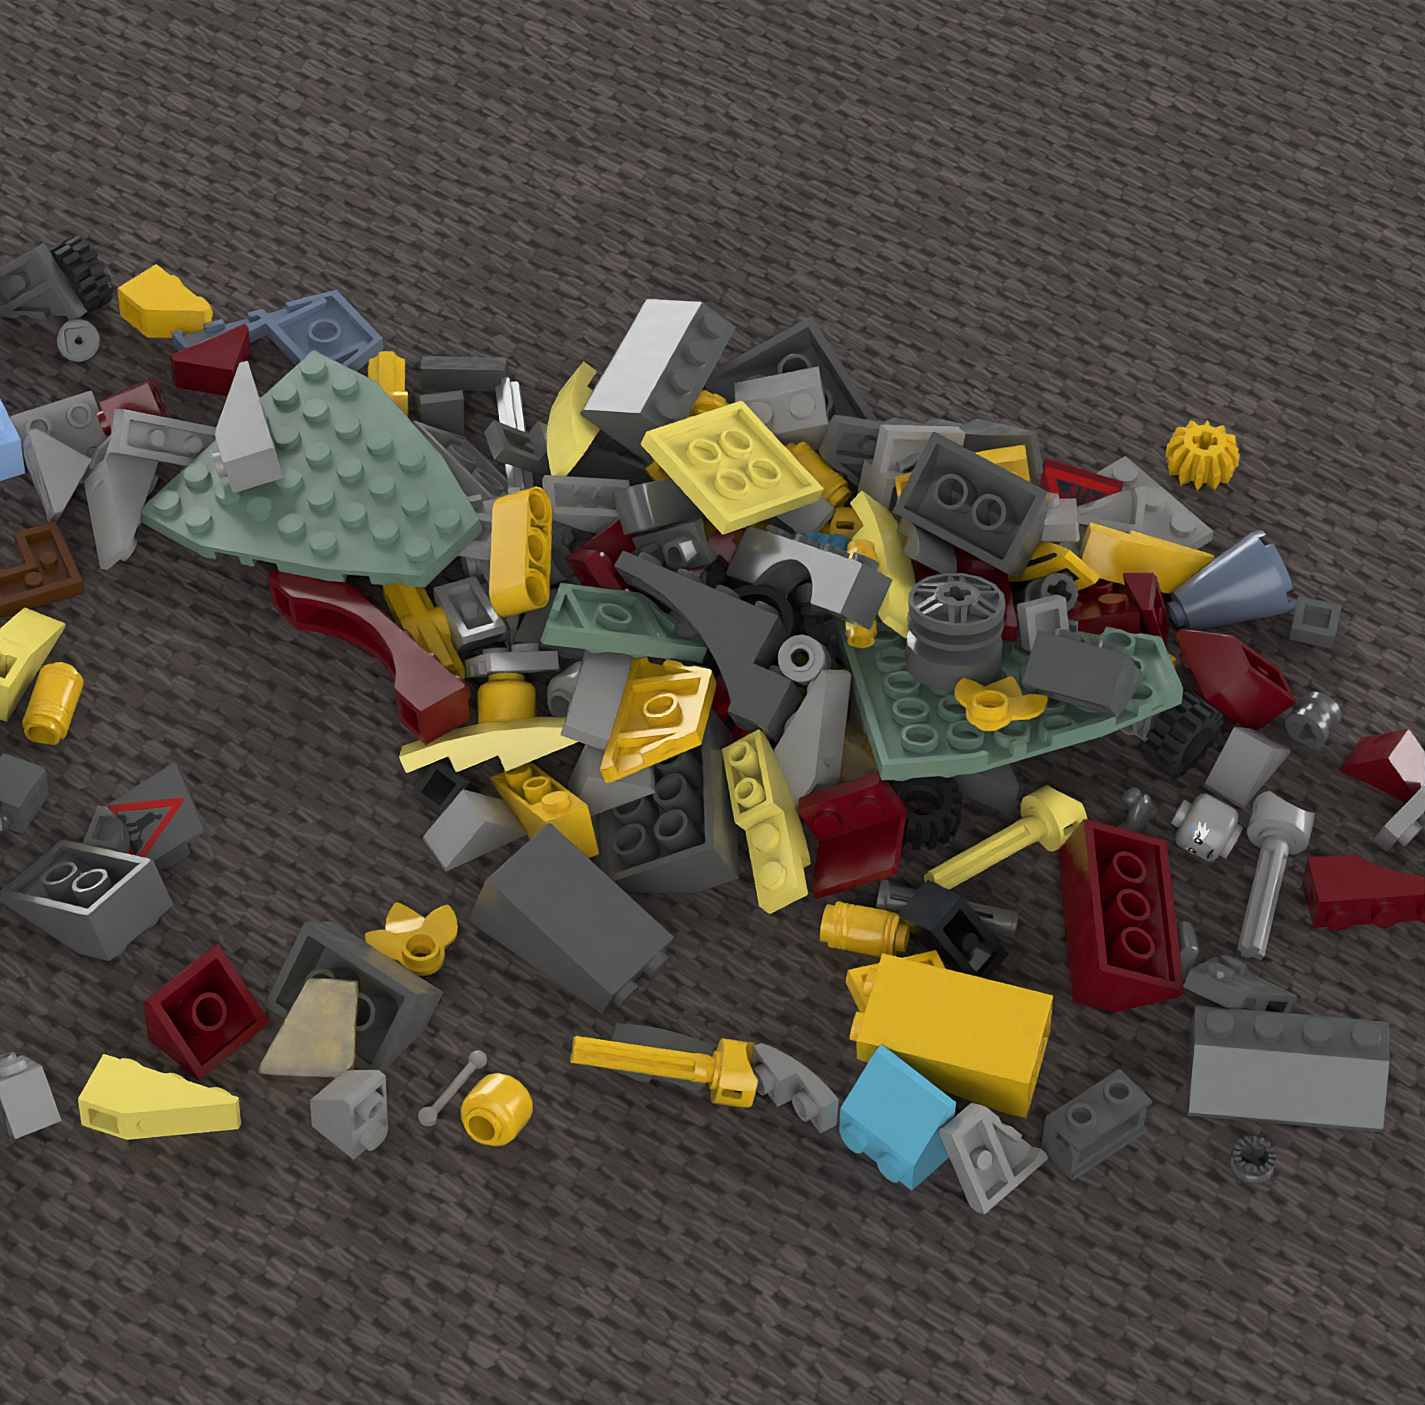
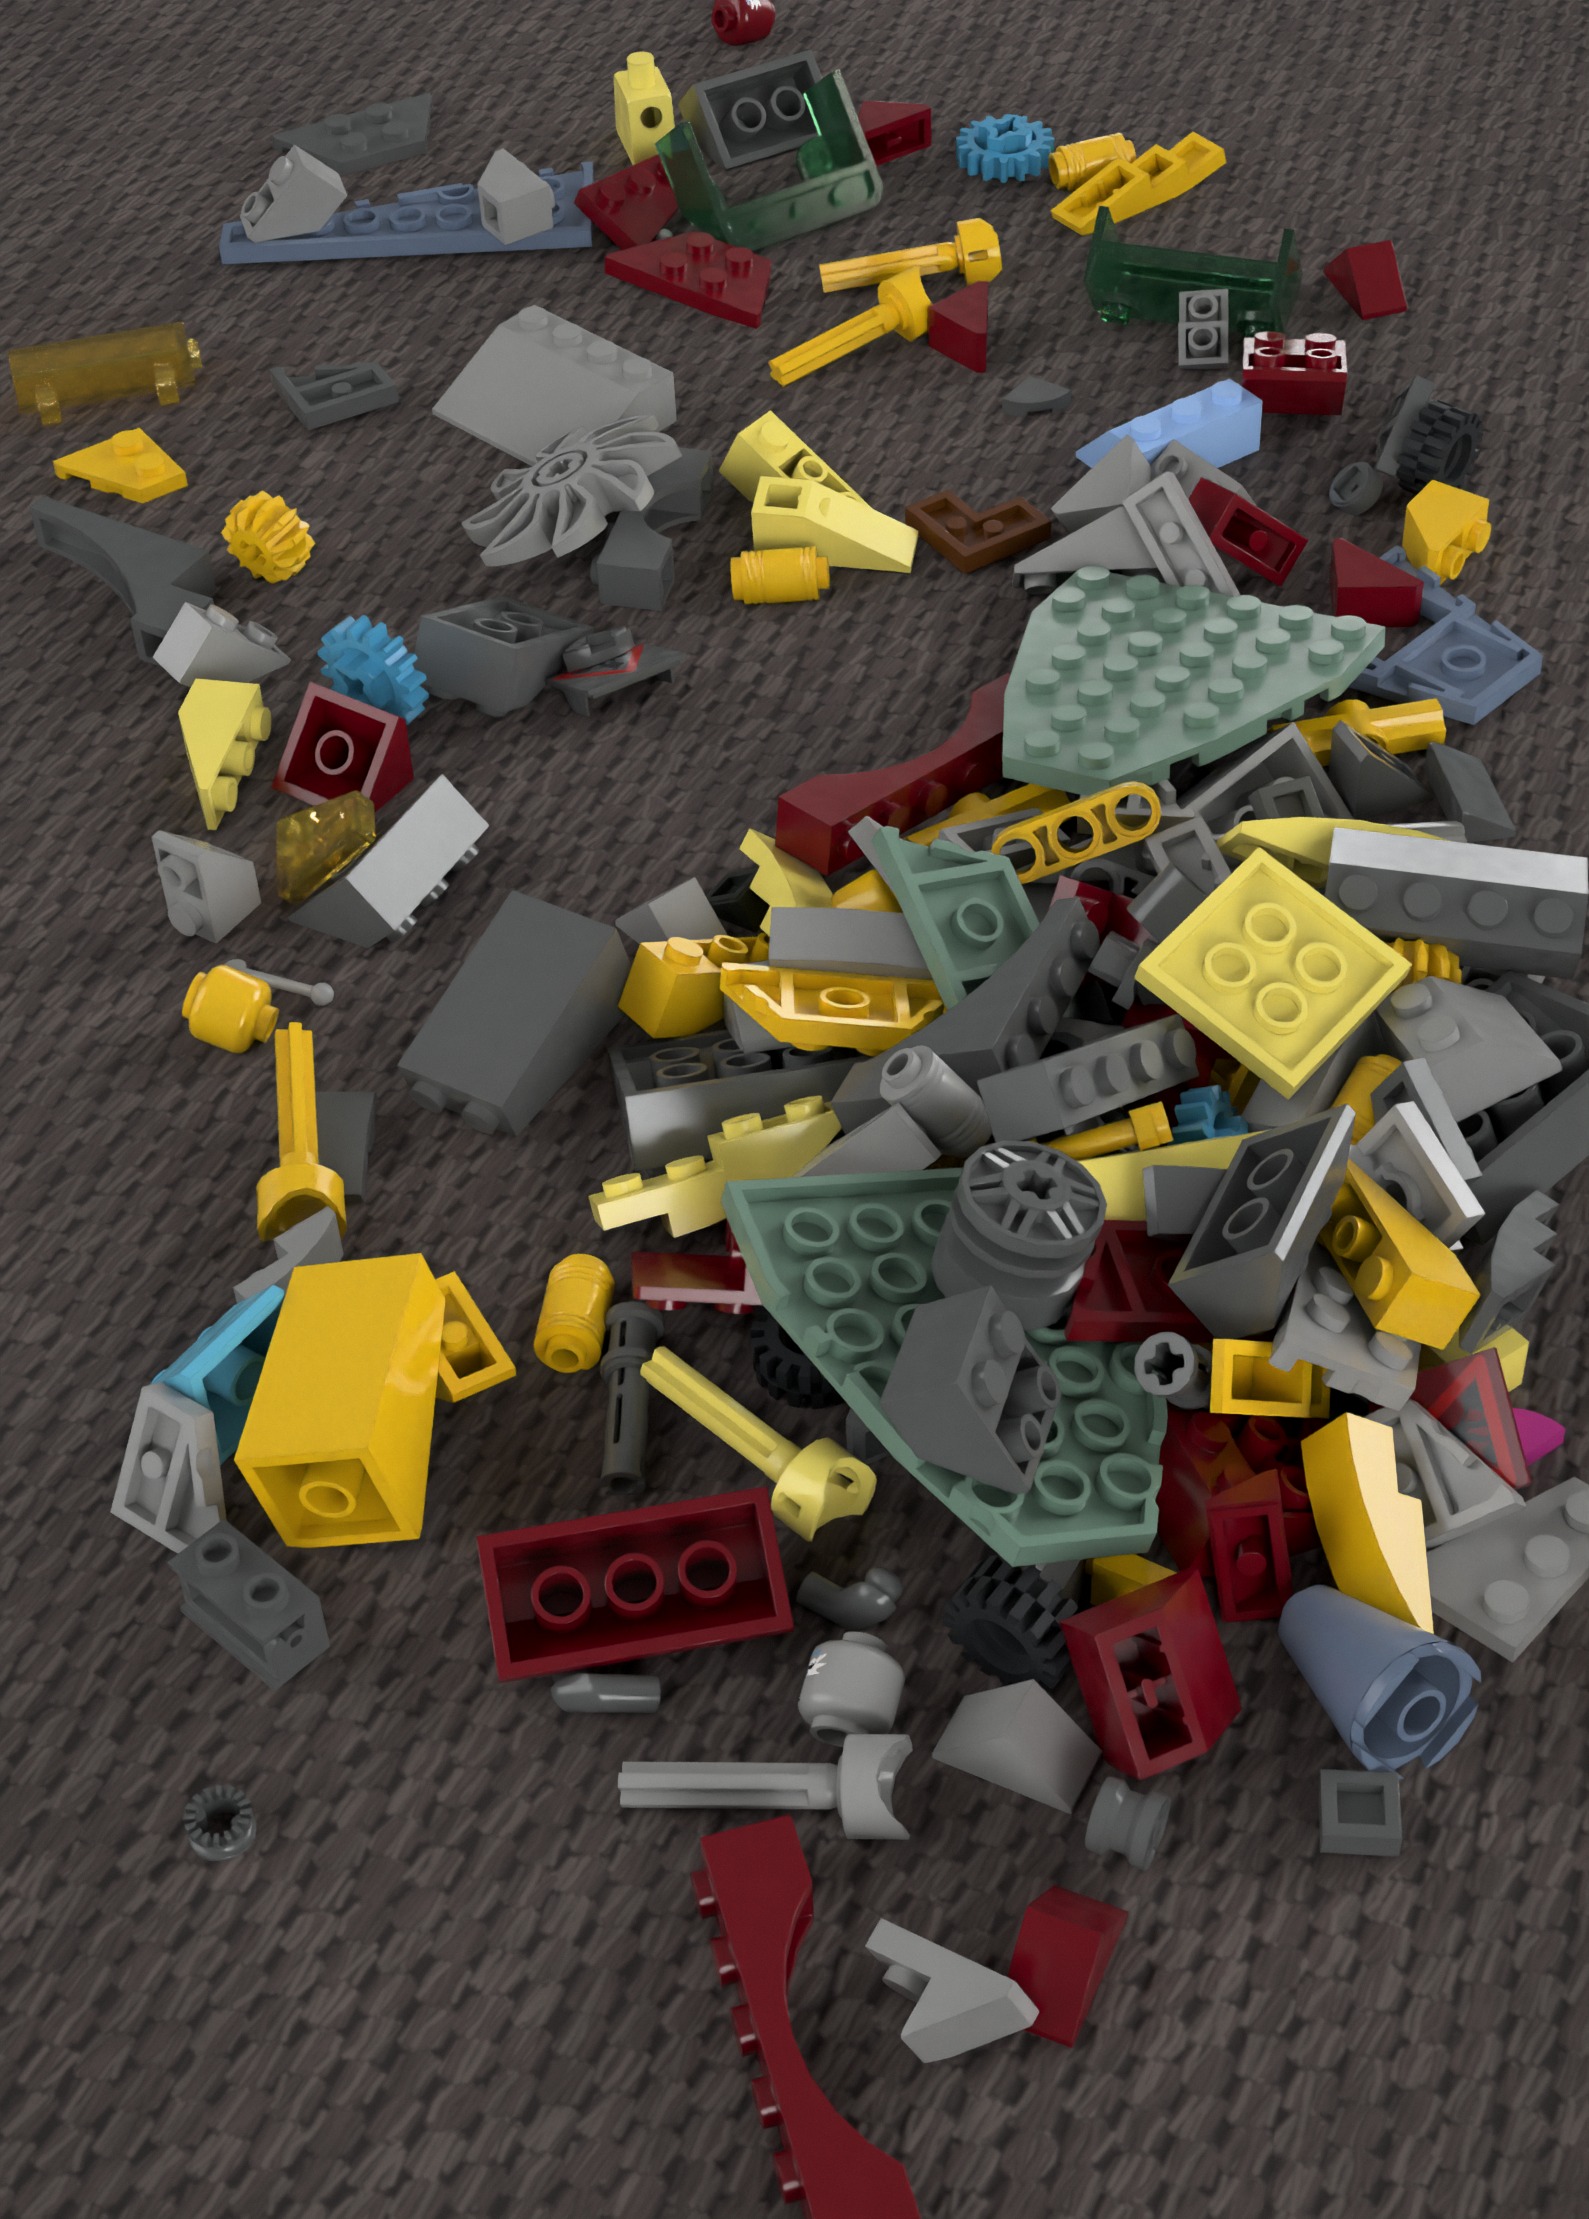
camera: 85 degrees right, 5 degrees down
(122, 971) = (373, 667): none -> dark azure gear
(244, 437) = (1197, 582): light grey slope -> none
(411, 934) = (478, 901): yellow plate -> none
(953, 929) = (560, 1391): black slope -> none
(997, 703) = (883, 1294): yellow plate -> none
(1041, 615) = (1102, 1356): light grey tile -> none
(1230, 985) = (523, 1746): dark grey wing -> none
(1288, 1068) = (382, 1848): slope -> none

